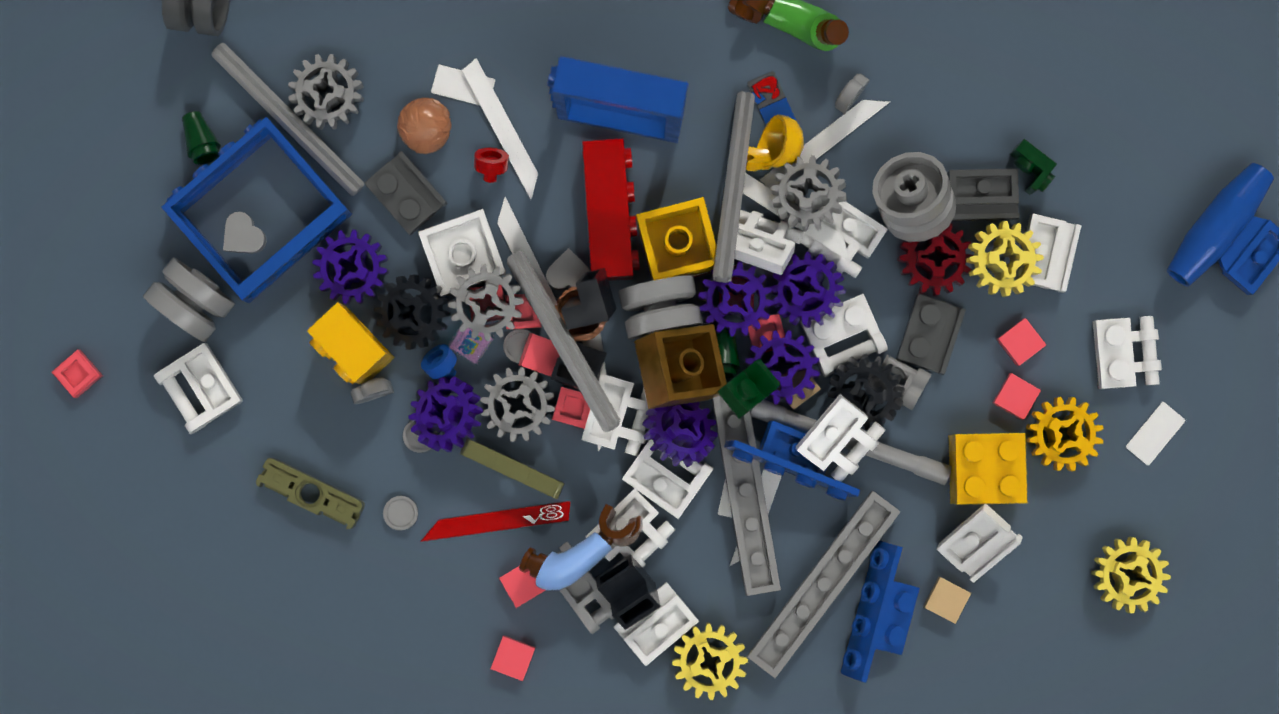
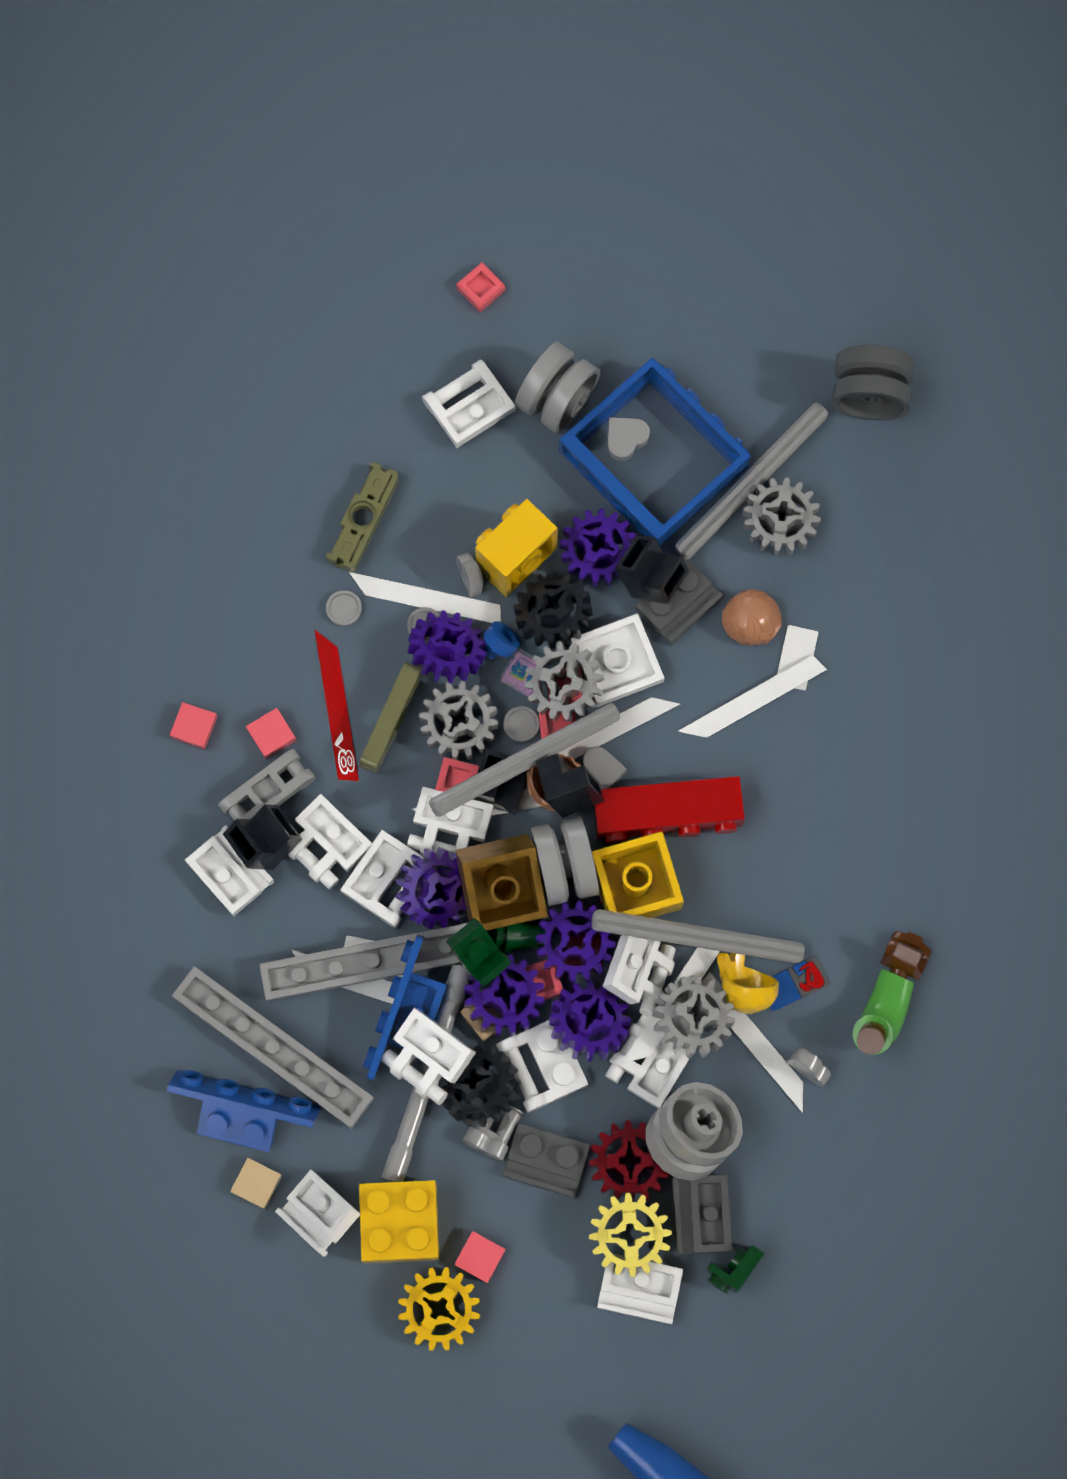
camera: 90 degrees right, 10 degrees down
(200, 141) = (726, 394): dark green cone -> none
(378, 217) = (650, 572): none -> black piece
(393, 431) = (428, 598): none -> white sticker
(491, 163) = (714, 686): red tile -> none
(539, 355) = (511, 738): coral tile -> none
(565, 568) = (285, 767): light blue piece -> none
(618, 99) = (781, 805): blue window -> none
(725, 655) = (204, 921): light yellow gear -> none
(1021, 342) = (540, 1261): coral tile -> none
(1115, 352) = (532, 1368): white plate -> none
(1123, 585) = (300, 1393): light yellow gear -> none
(1155, 433) = (442, 1417): white sticker -> none

